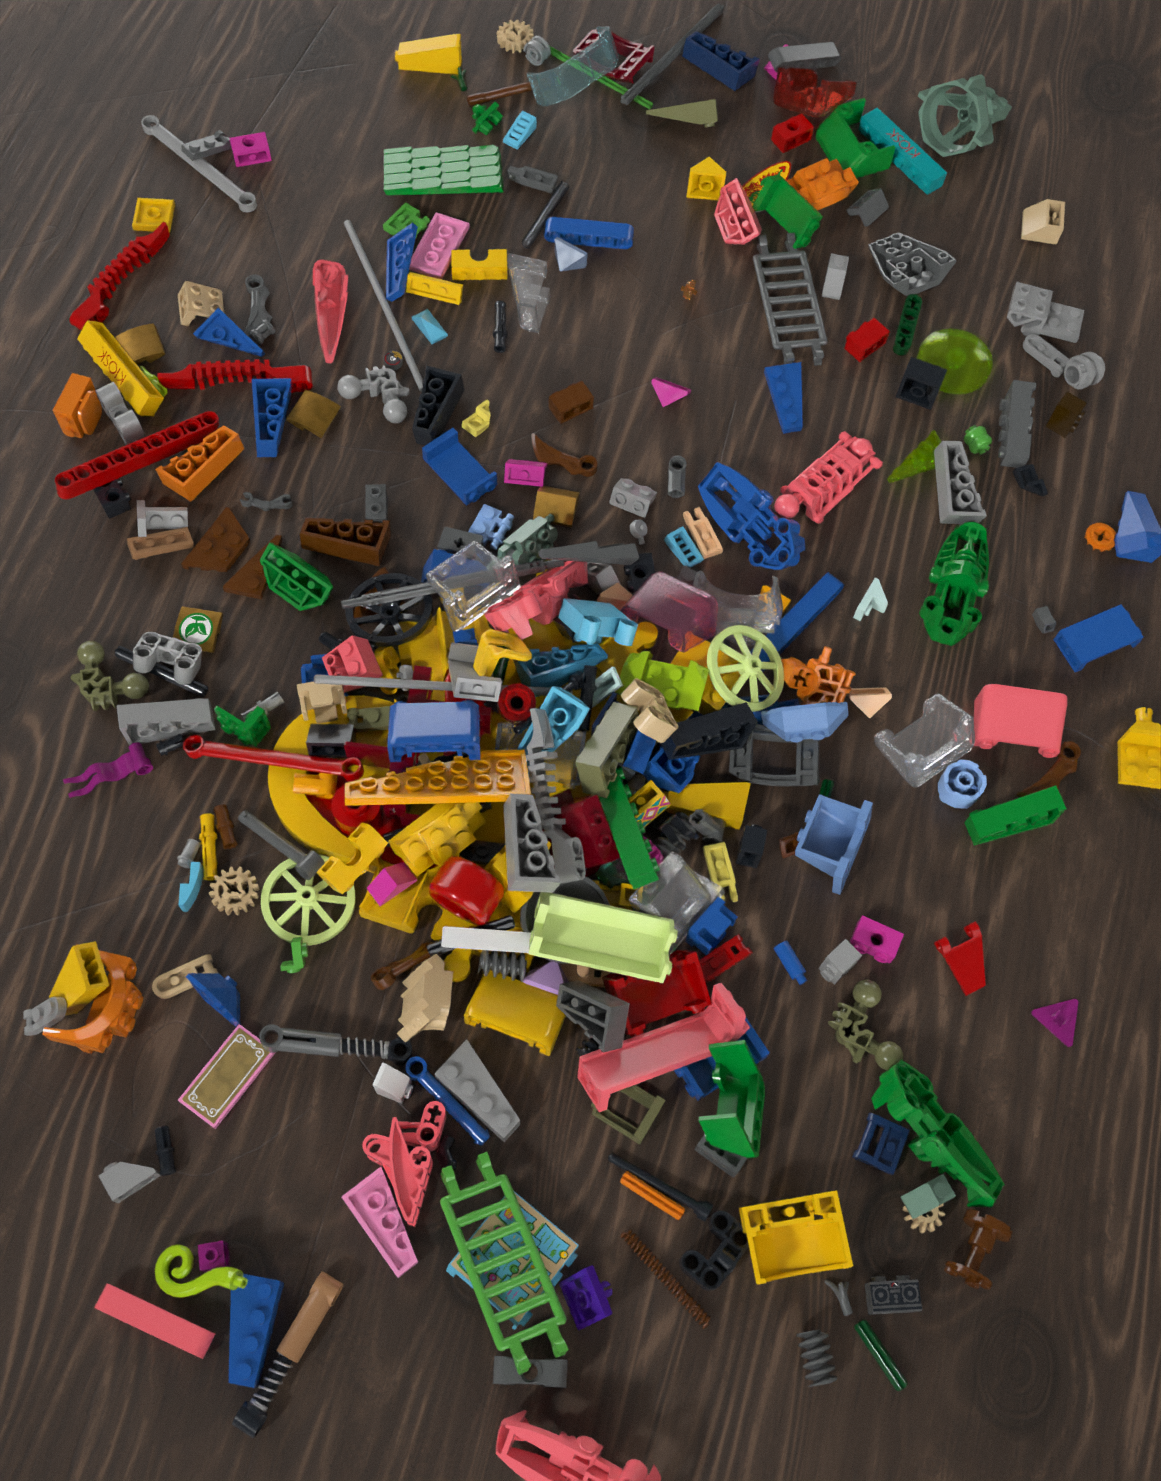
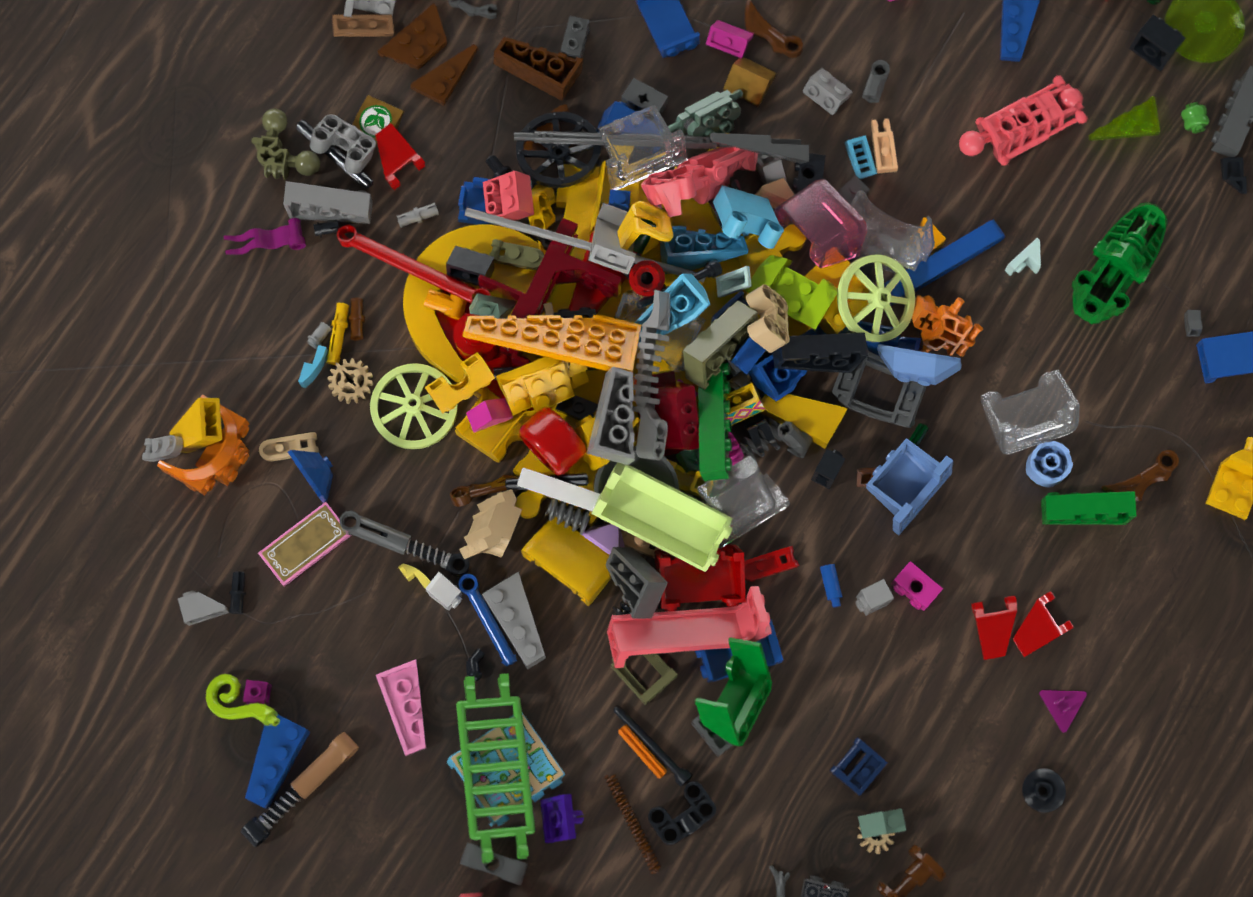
camera: 20 degrees right, 10 degrees up
(155, 1320) = (197, 730): coral beam -> none
(225, 655) = (395, 154): none -> red flag
(248, 732) = (401, 236): green bracket -> none
(294, 578) = (479, 94): green wedge -> none
(299, 952) = (394, 452): bright green bracket -> none
(306, 865) = (419, 375): dark grey piece -> none
(322, 699) = (472, 228): tan panel -> none
(349, 1074) = (411, 572): none -> light yellow slope
(363, 769) = (491, 306): none -> sand green slope
(405, 672) = (555, 219): light grey piece -> none
(405, 1175) = (430, 657): coral piece -> none
(434, 728) = (562, 285): windscreen -> none
(486, 522) = (675, 82): light blue plate -> none
(587, 692) = (716, 286): black pin -> none
(638, 530) = (822, 127): light grey piece -> none
(711, 927) = (767, 532): blue panel -> none
(720, 868) = (794, 481): light yellow hinge -> none
(751, 518) = (934, 147): blue piece -> none
(792, 1239) = (750, 822): yellow piece -> none
(866, 995) = (889, 633): olive piece -> none
(869, 699) = (991, 356): light nougat slope -> none
(940, 1134) = (911, 775): green piece -> none
(955, 485) = (1151, 167): light grey wedge -> none
(1008, 947) = (1039, 627): none -> red flag
(1020, 718) = (1129, 416): coral windscreen -> none
(1083, 1106) = (1054, 788): none -> black dish

